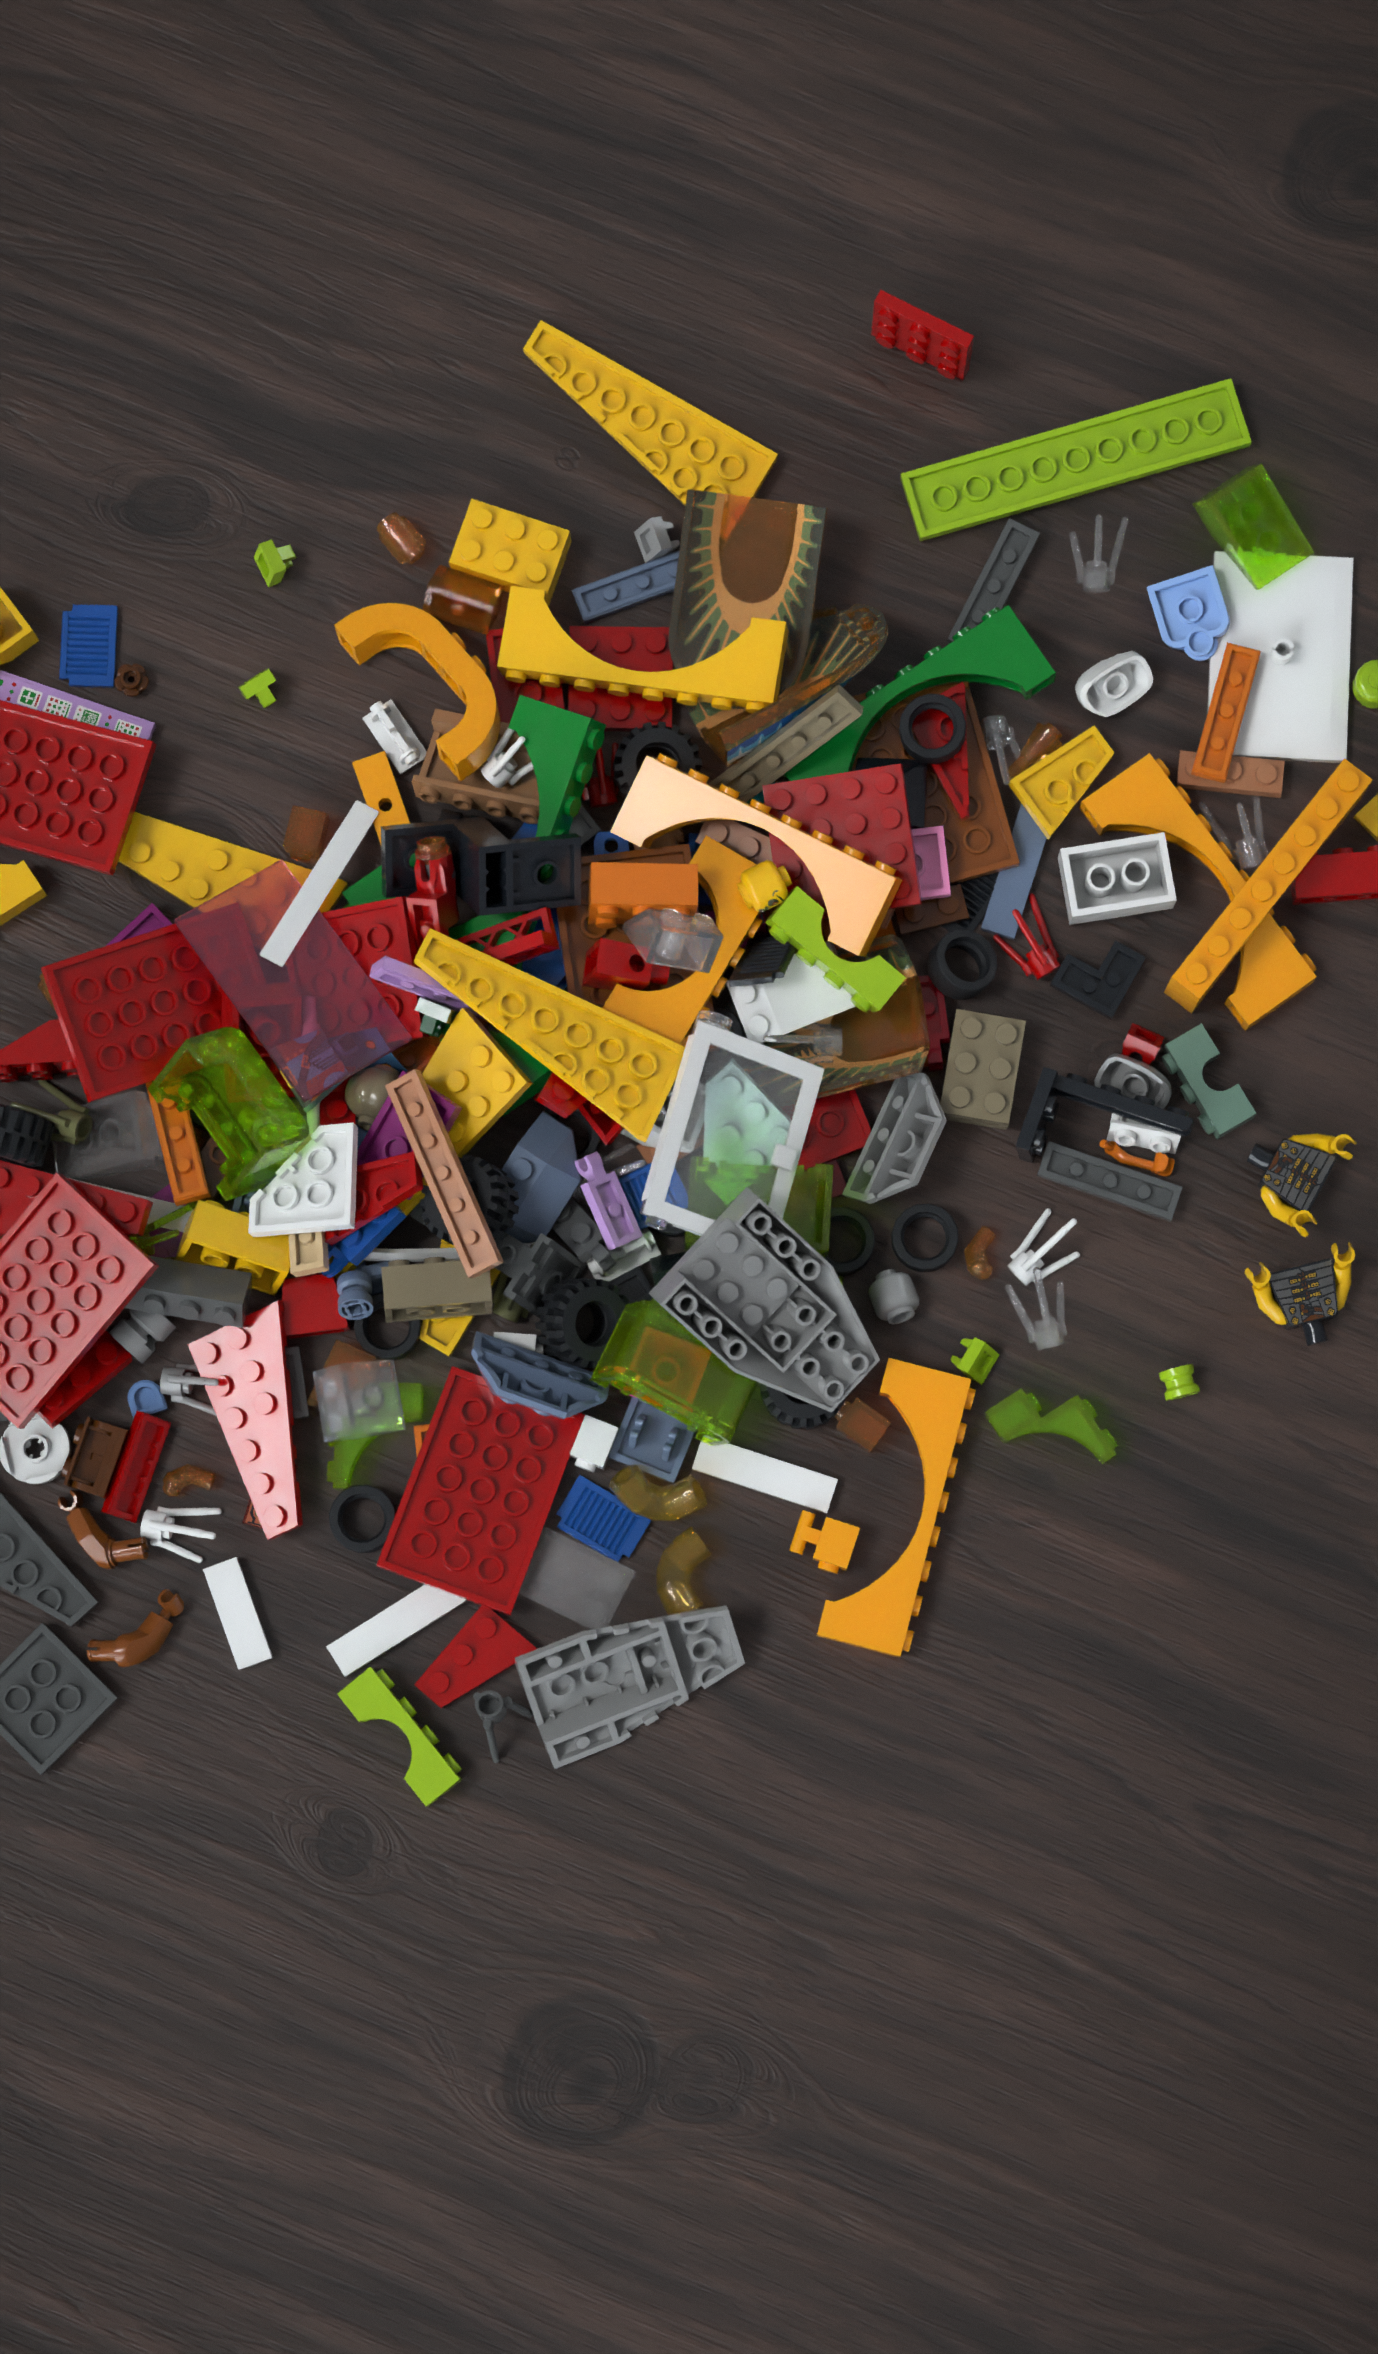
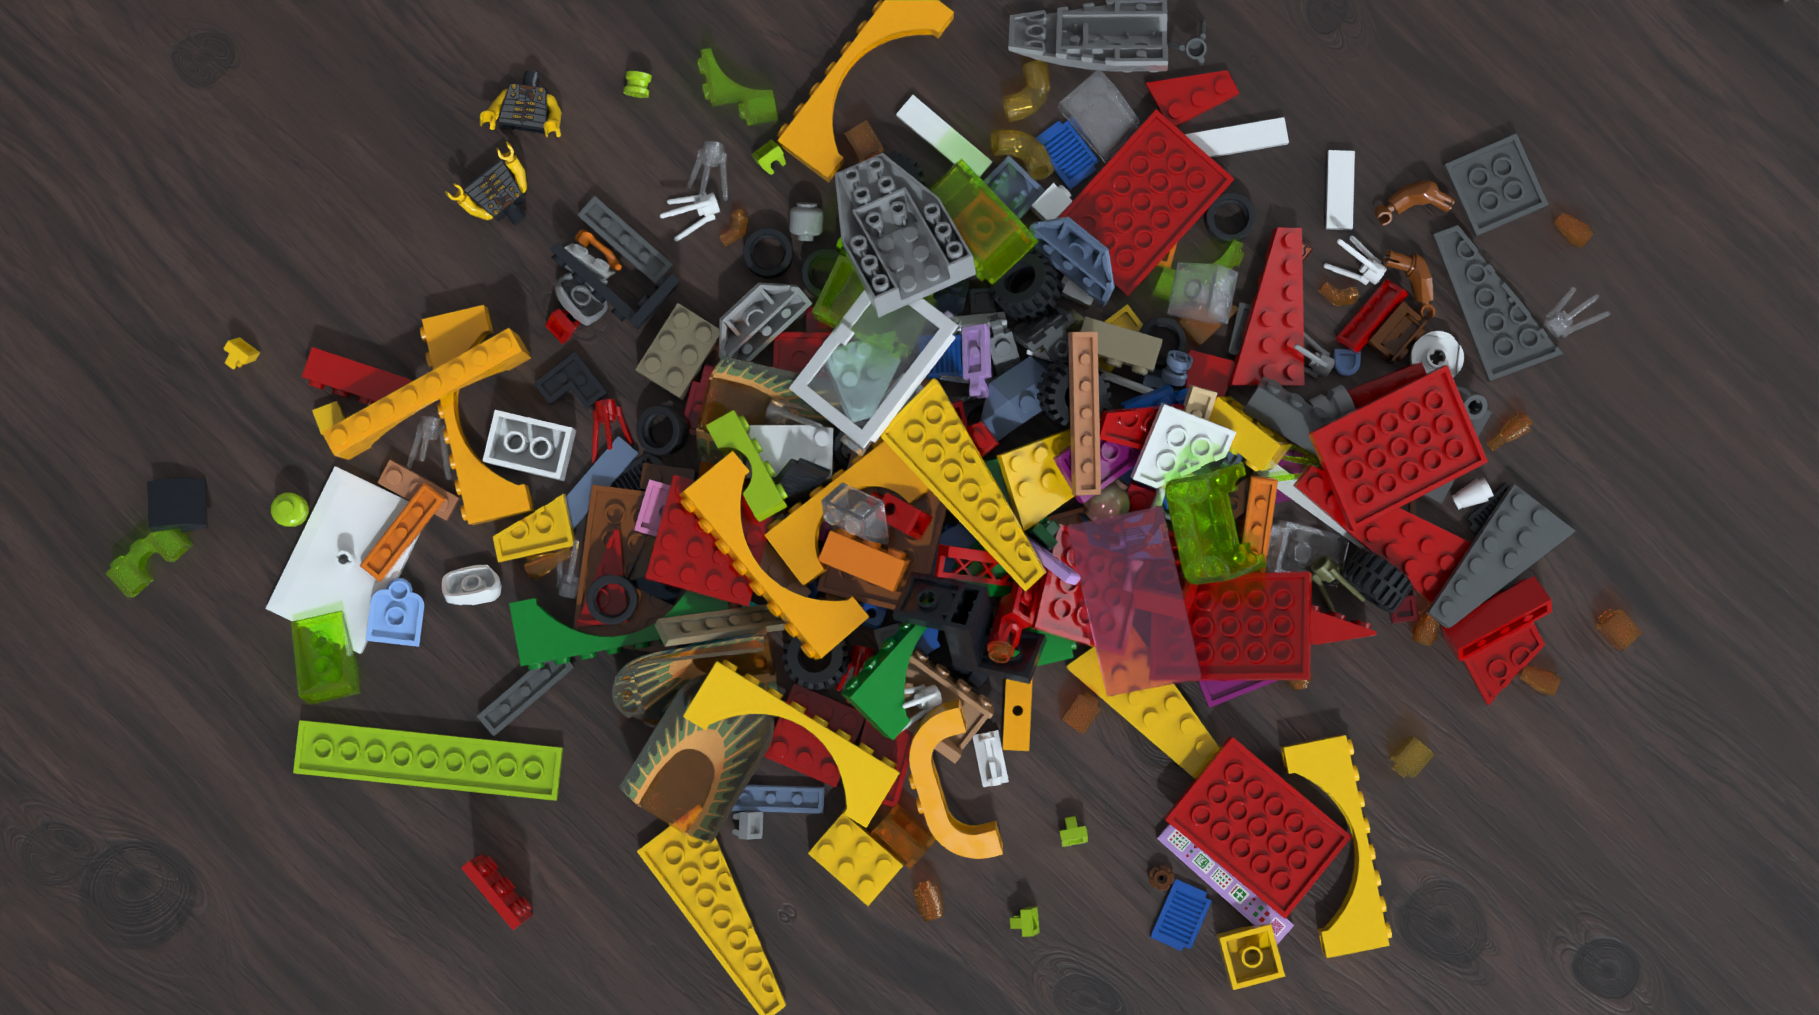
camera: 160 degrees left, 5 degrees up
(319, 883) = (1087, 667): white sticker -> none
(429, 1772) = (1271, 93): lime arch -> none
(764, 886) = (777, 529): yellow head -> none
(833, 1543) = (917, 71): light orange brick -> none
(1096, 575) = (448, 670): clear plant -> none
(1219, 1110) = (533, 302): sand green arch -> none

